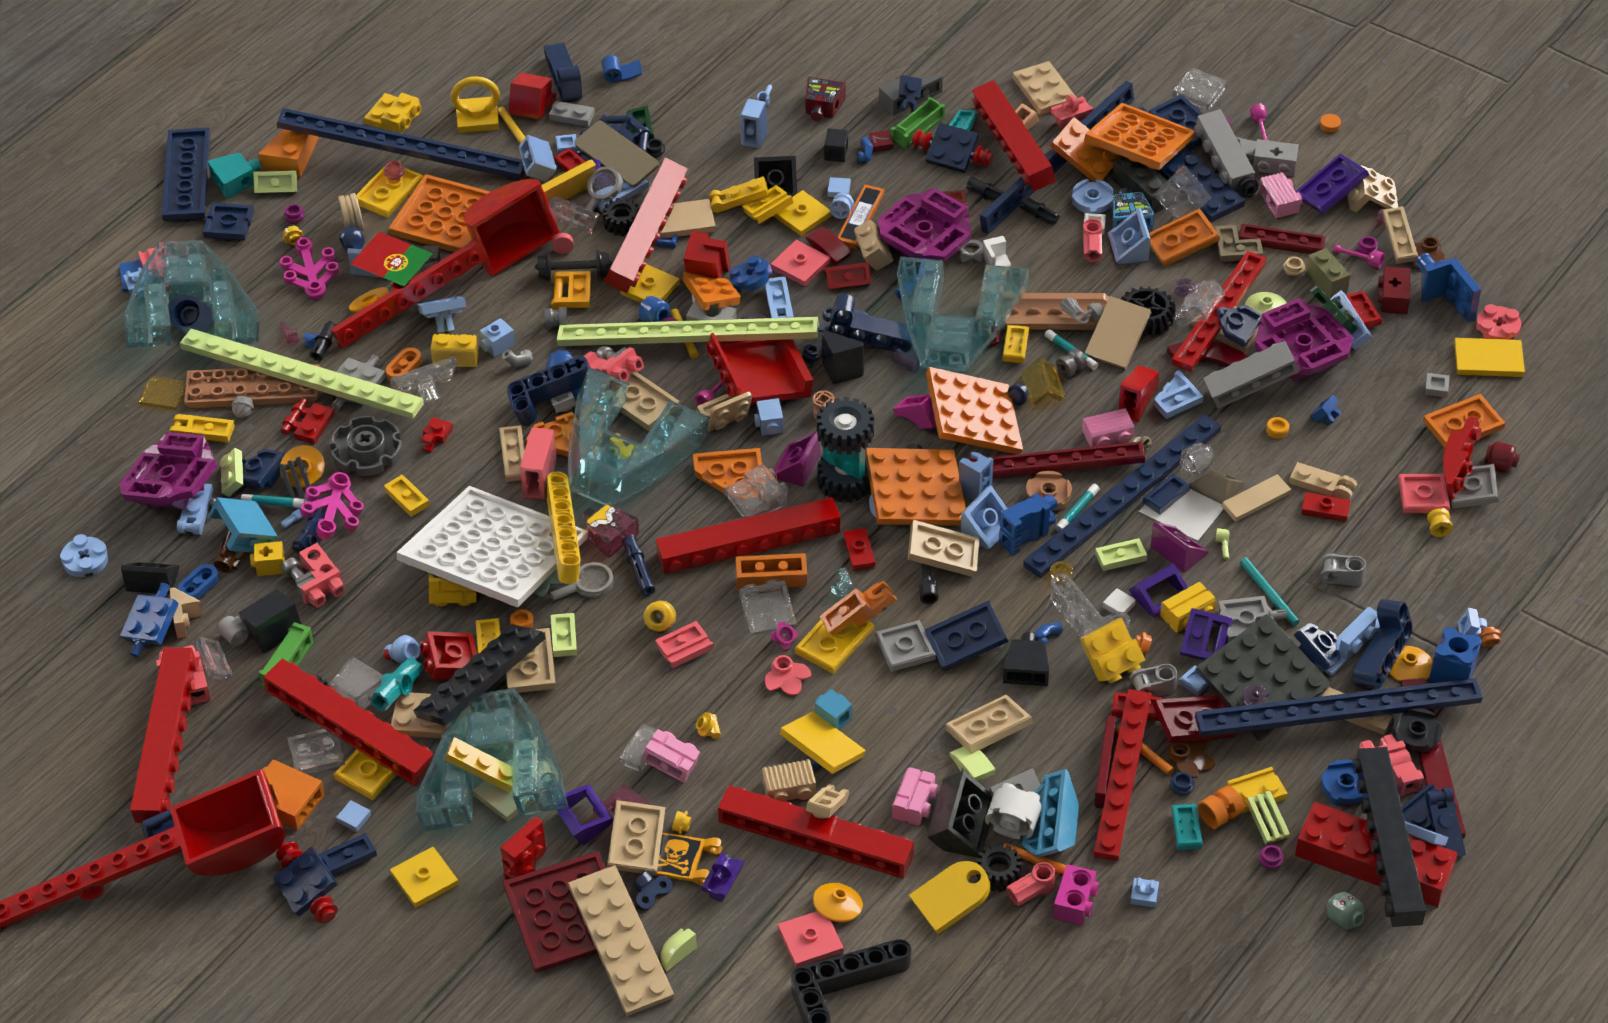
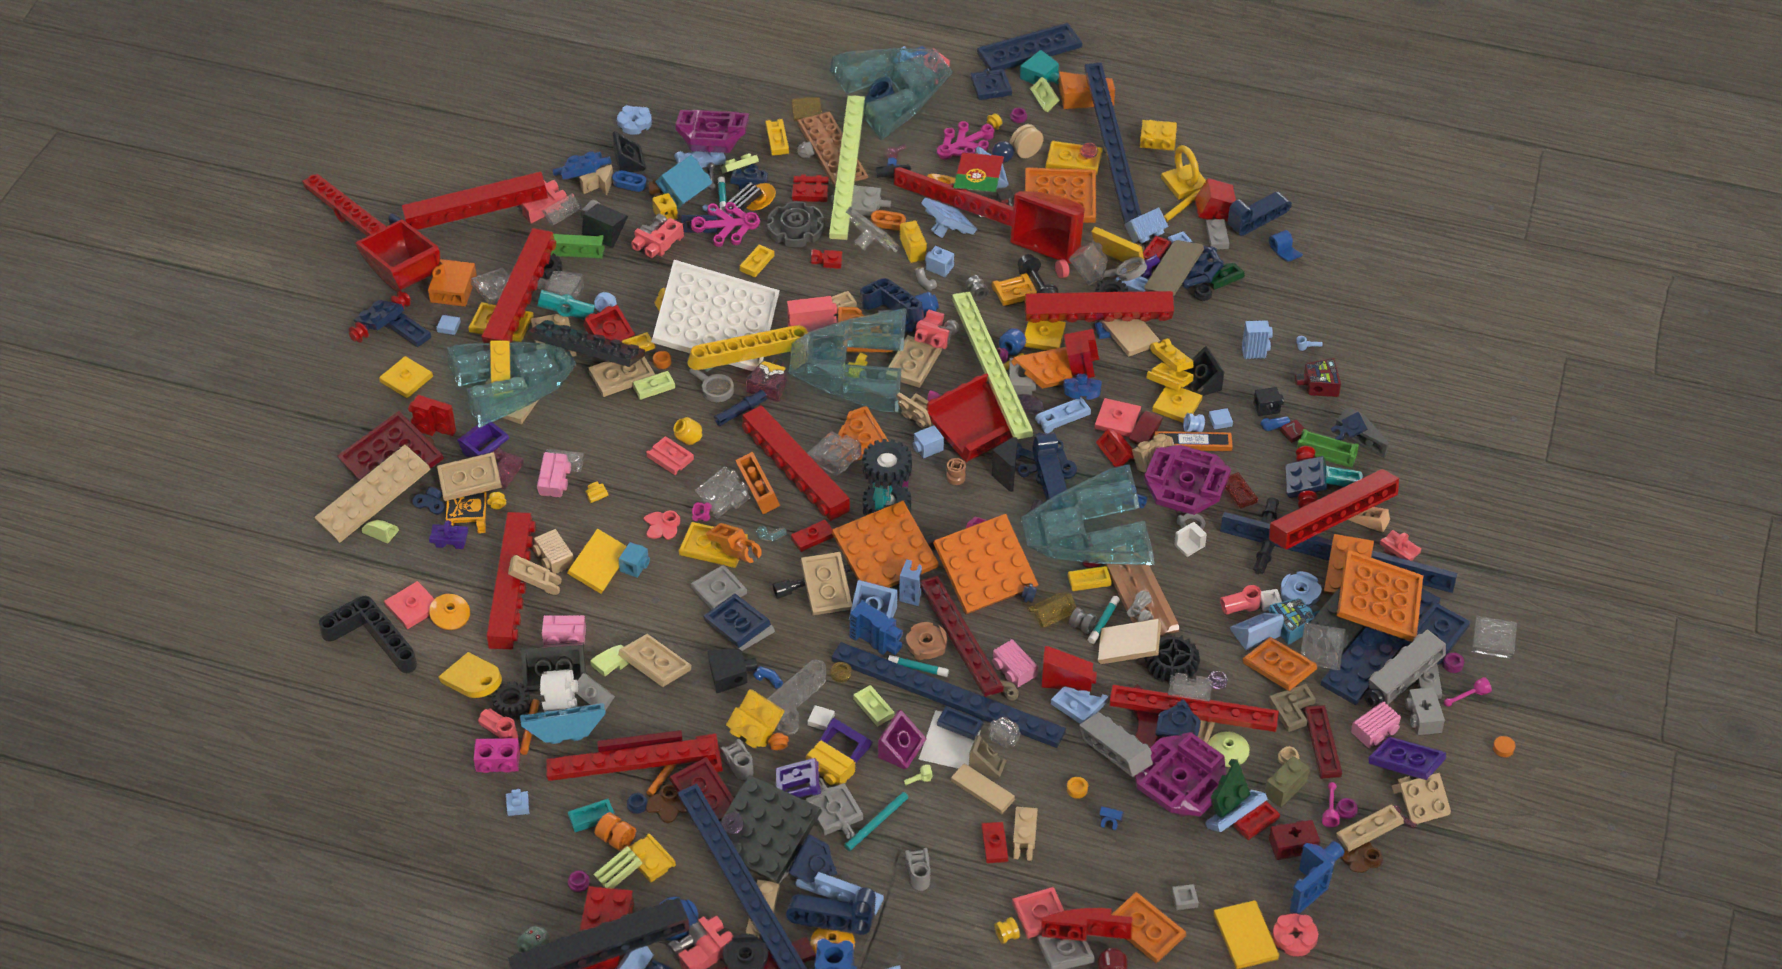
camera: 70 degrees right, 0 degrees up
(1042, 86) = (1428, 524): tan plate -> none

